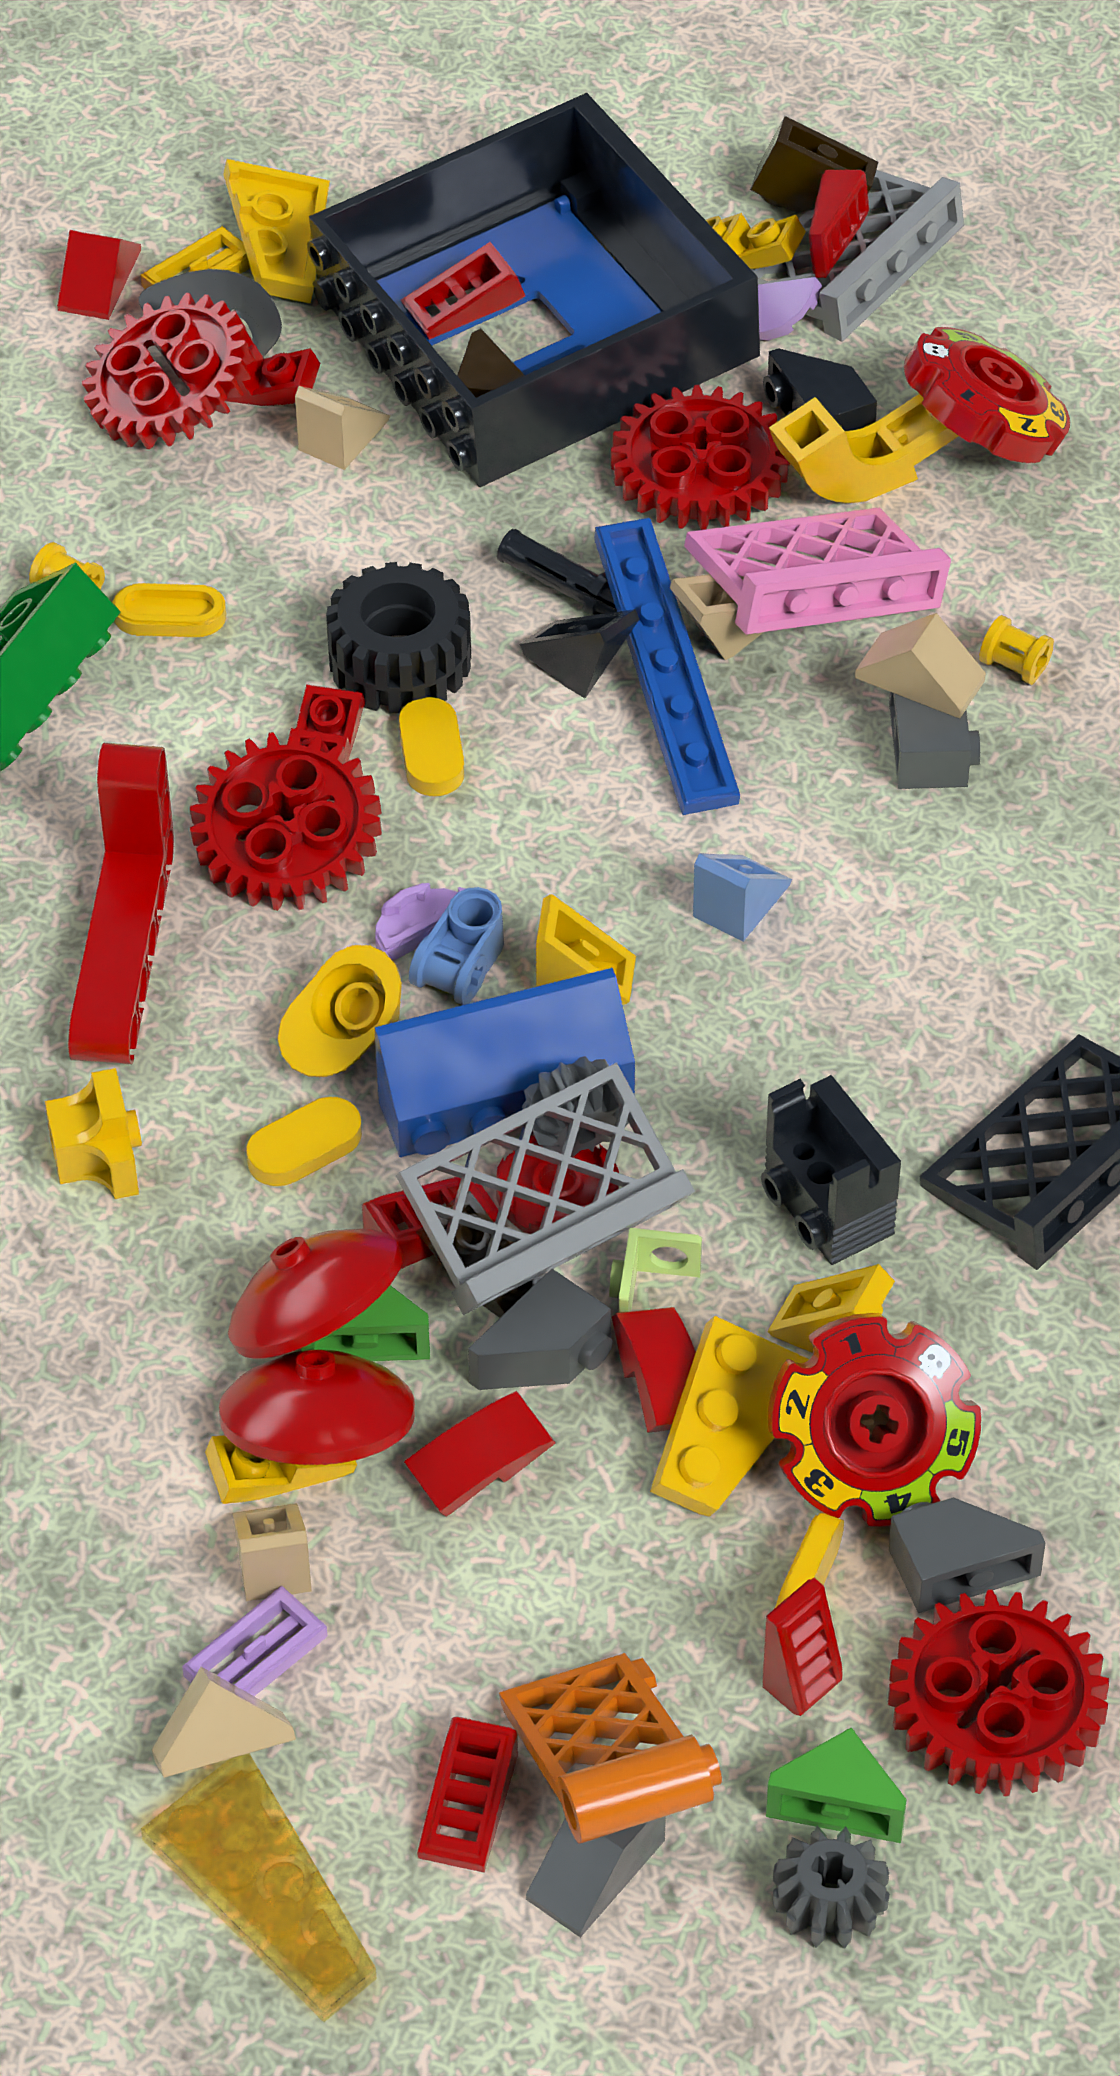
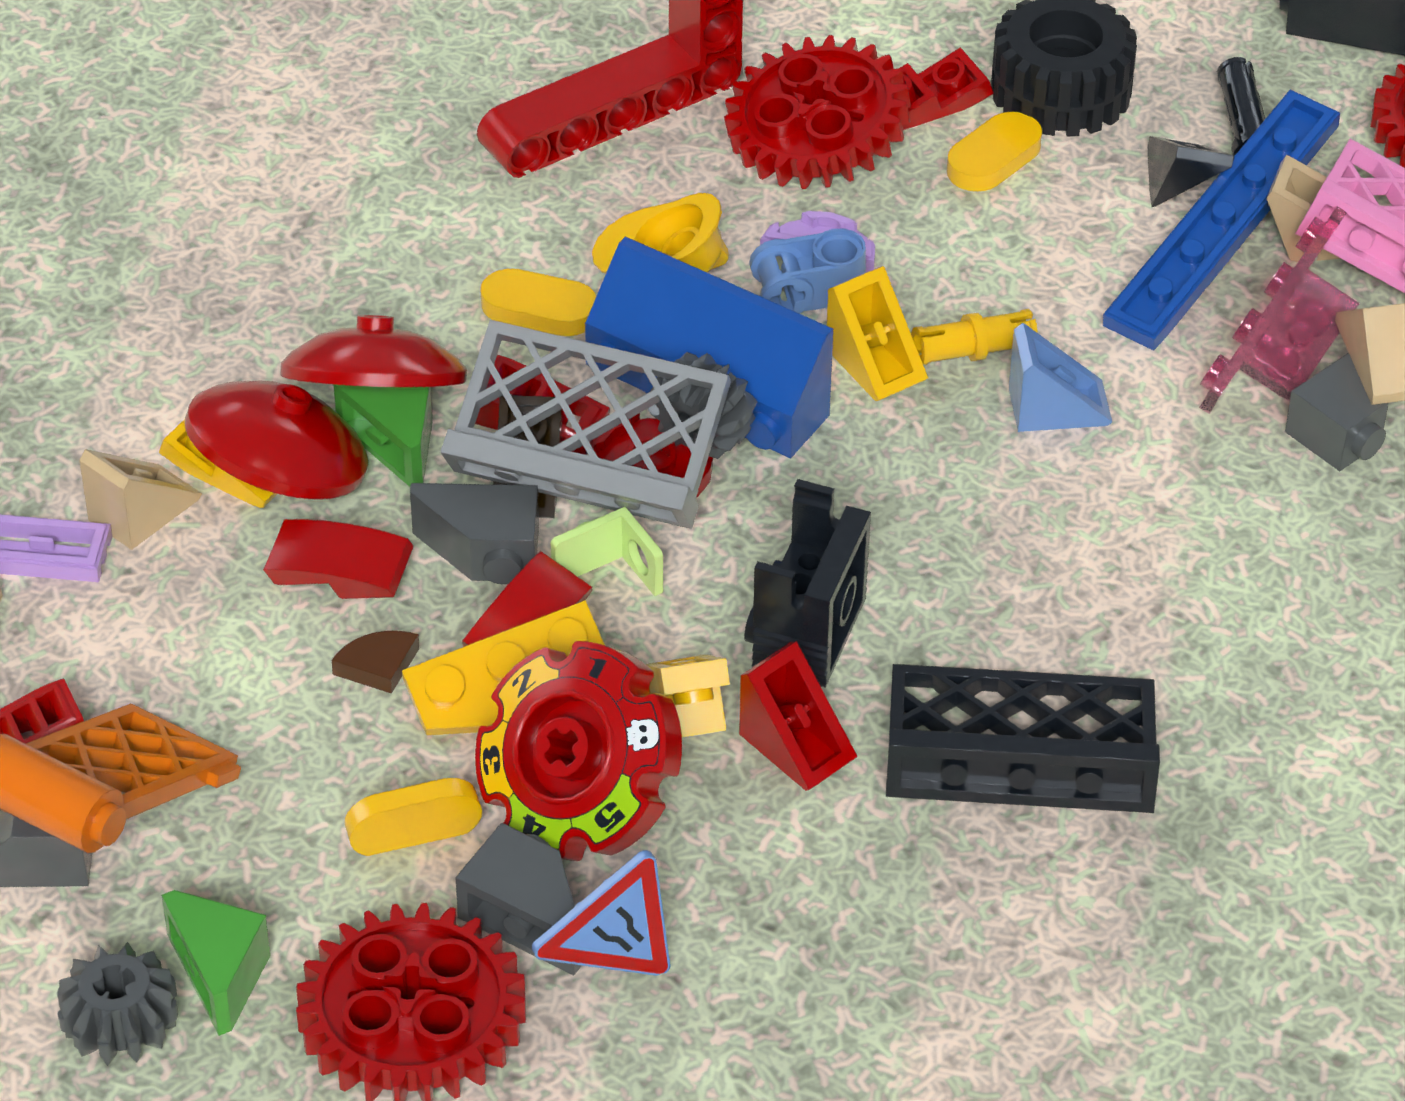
camera: 50 degrees right, 5 degrees down
(95, 1135) = (412, 187): yellow brick -> none
(606, 1497) = (377, 659): none -> reddish brown tile
(632, 894) = (970, 336): none -> yellow pin
(801, 1649) = (318, 848): red slope -> none
(826, 705) = (1295, 328): none -> clear pink bracket
(933, 1273) = (792, 719): none -> red slope
(1064, 1510) = (614, 925): none -> piece

